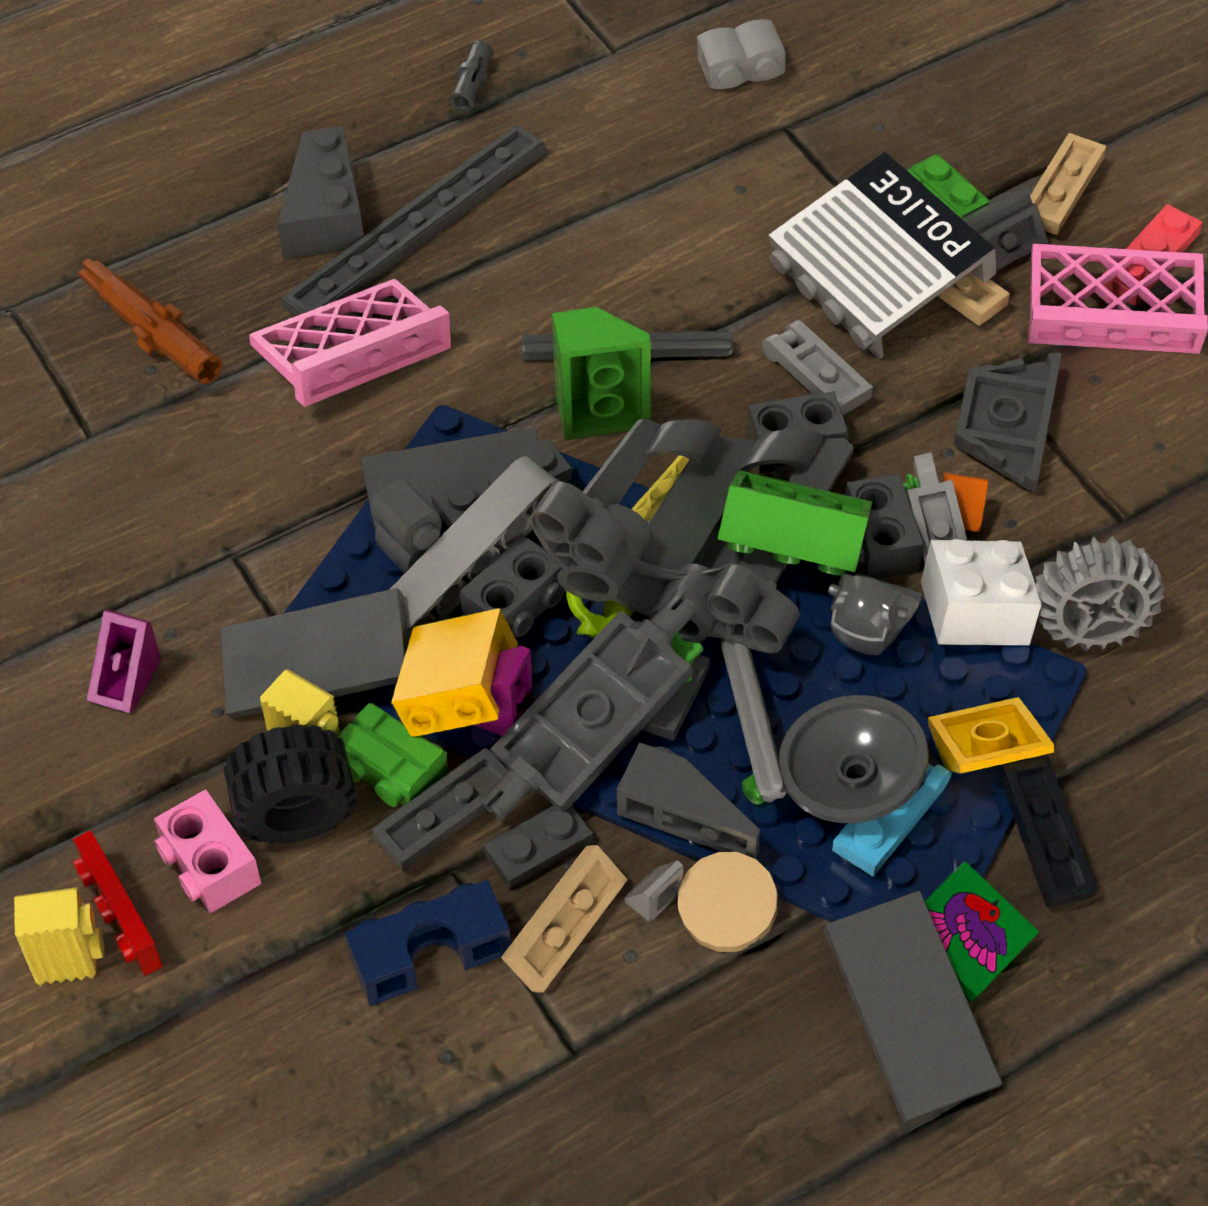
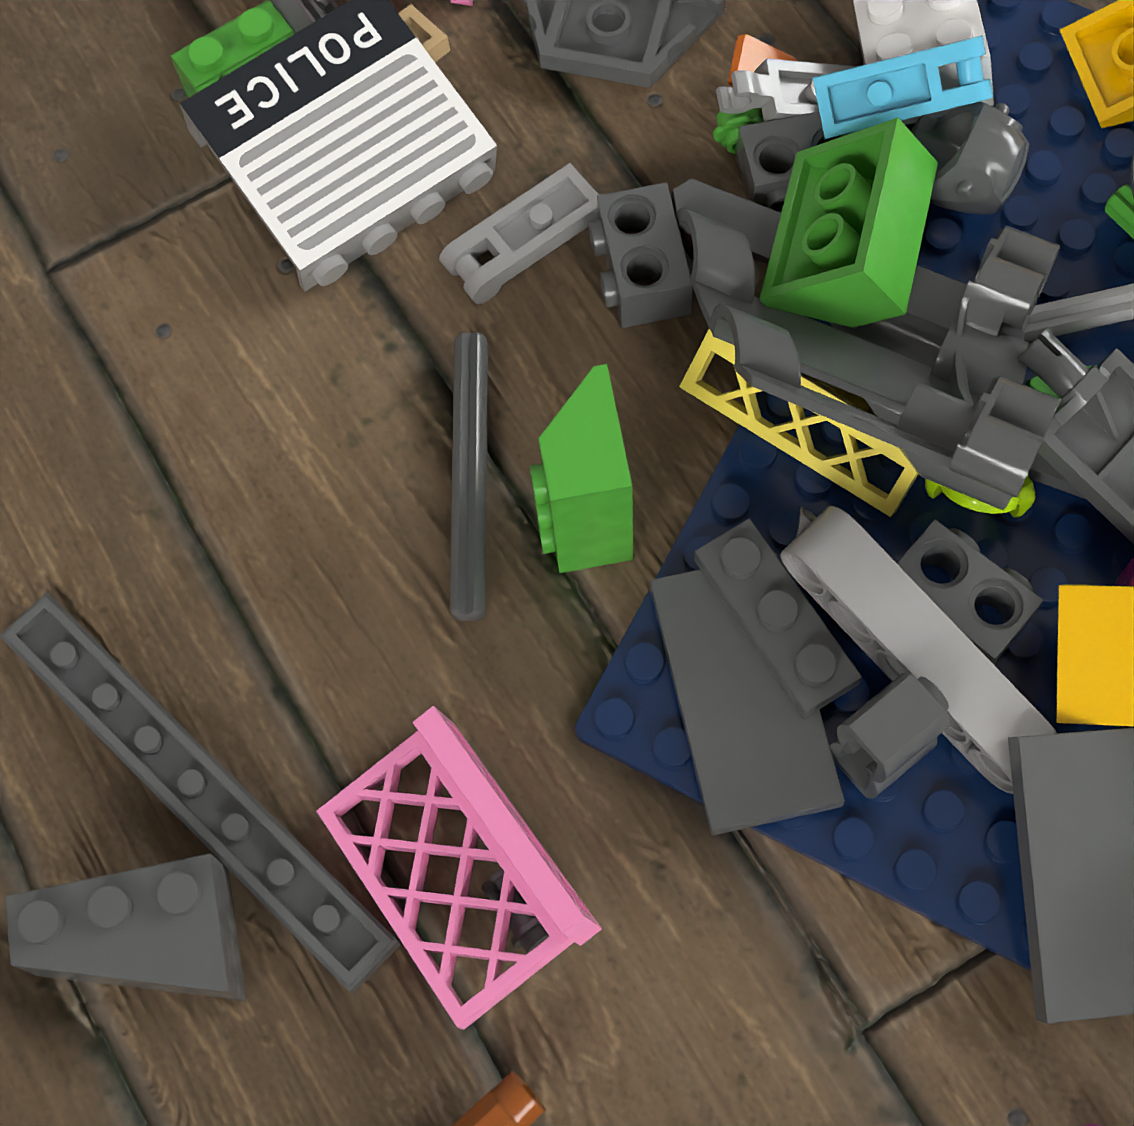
camera: 85 degrees left, 15 degrees up
(919, 550) = (900, 87): none -> medium azure plate

